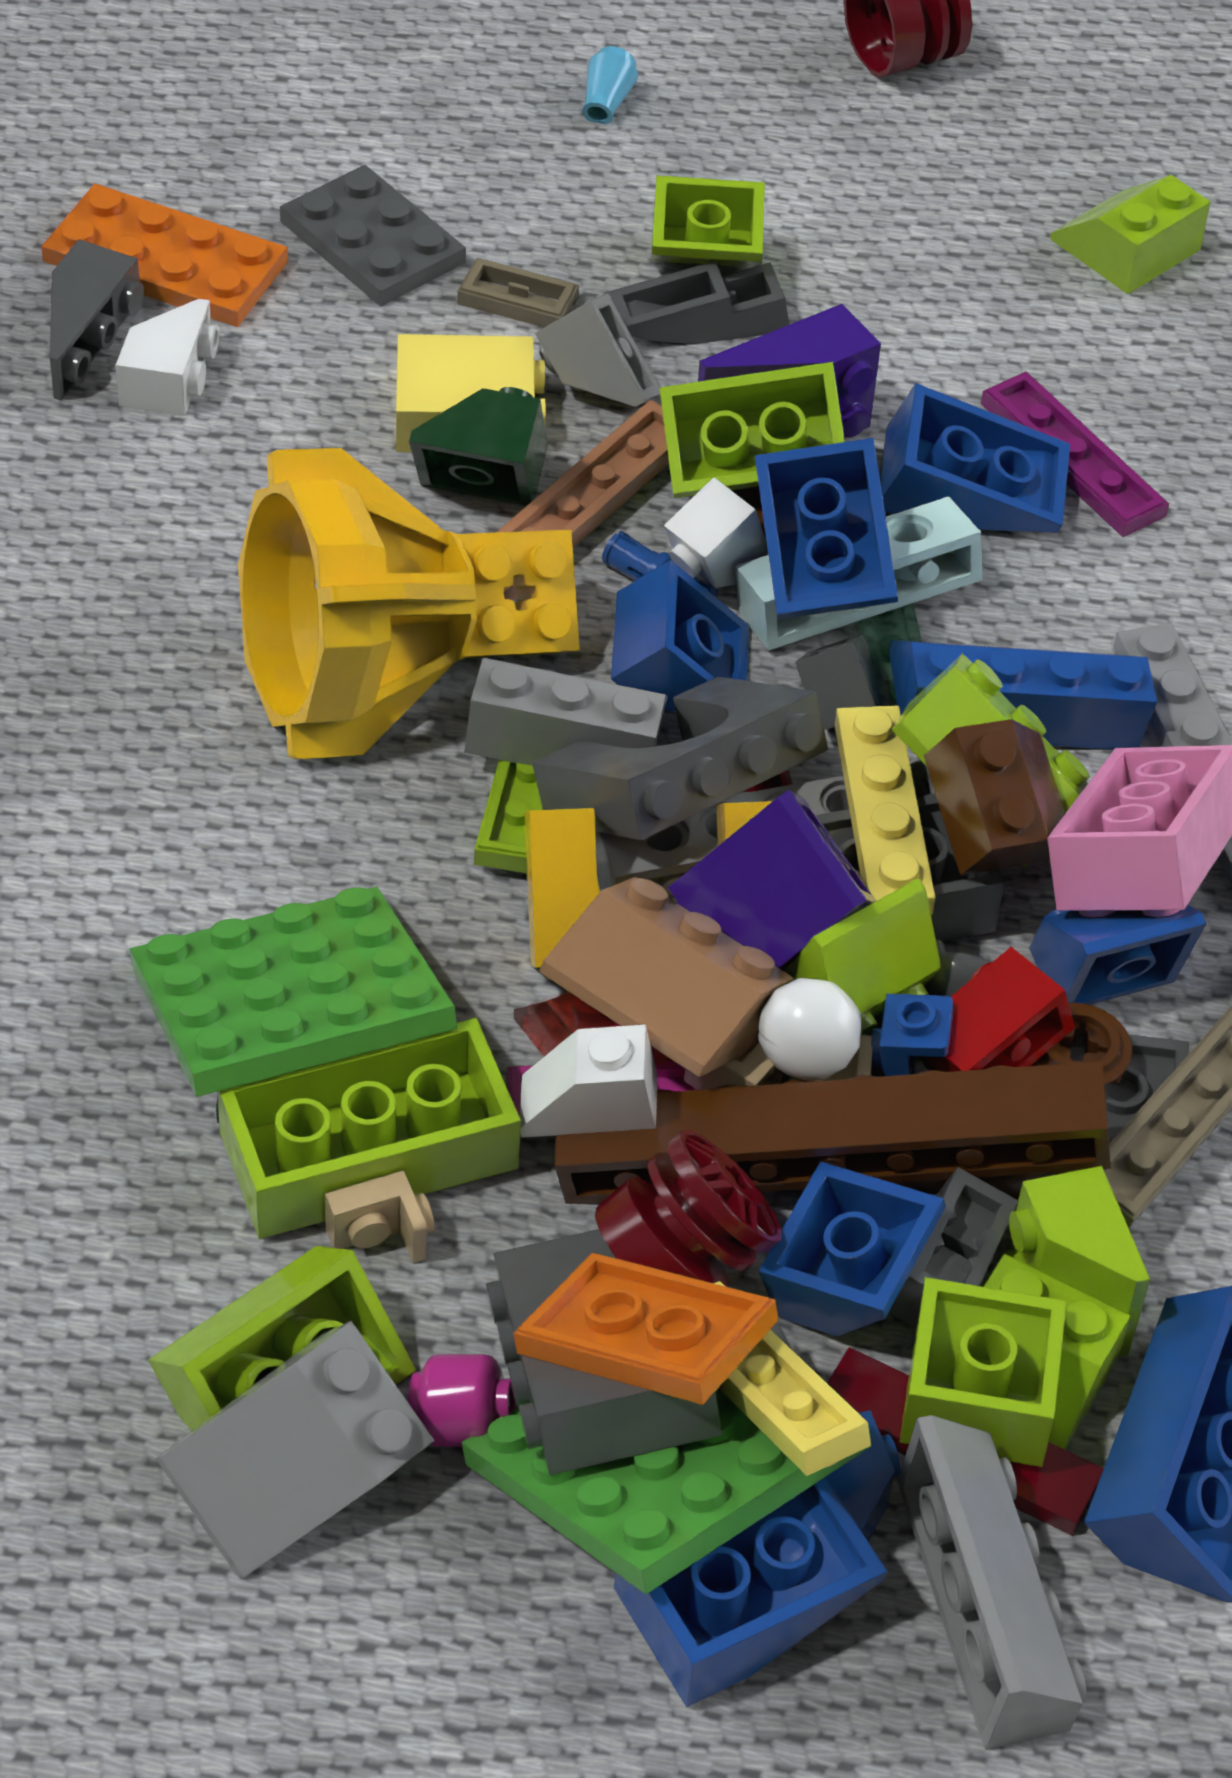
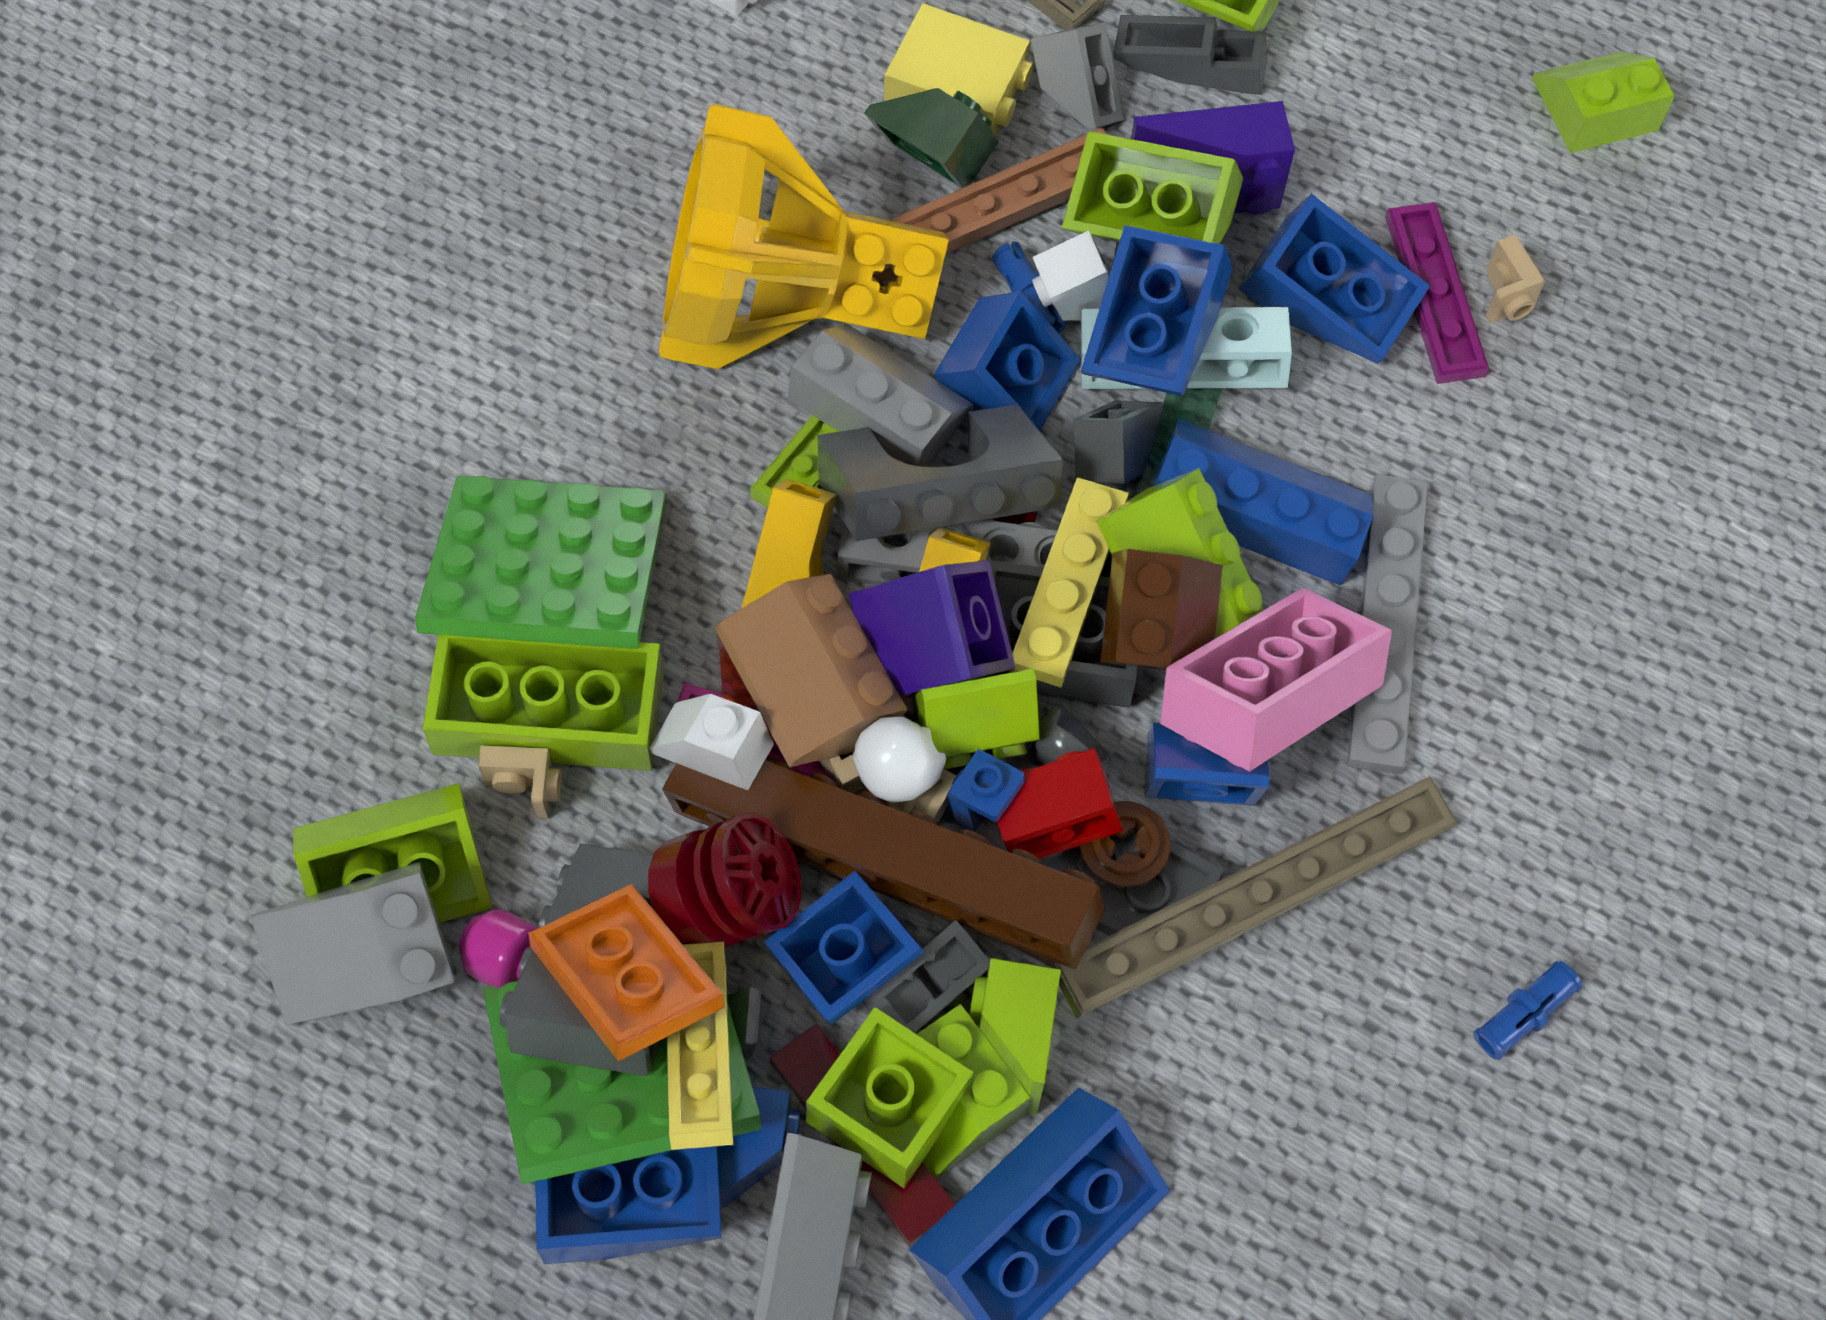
camera: 25 degrees right, 15 degrees up
(1148, 413) = (1514, 279): none -> tan bracket

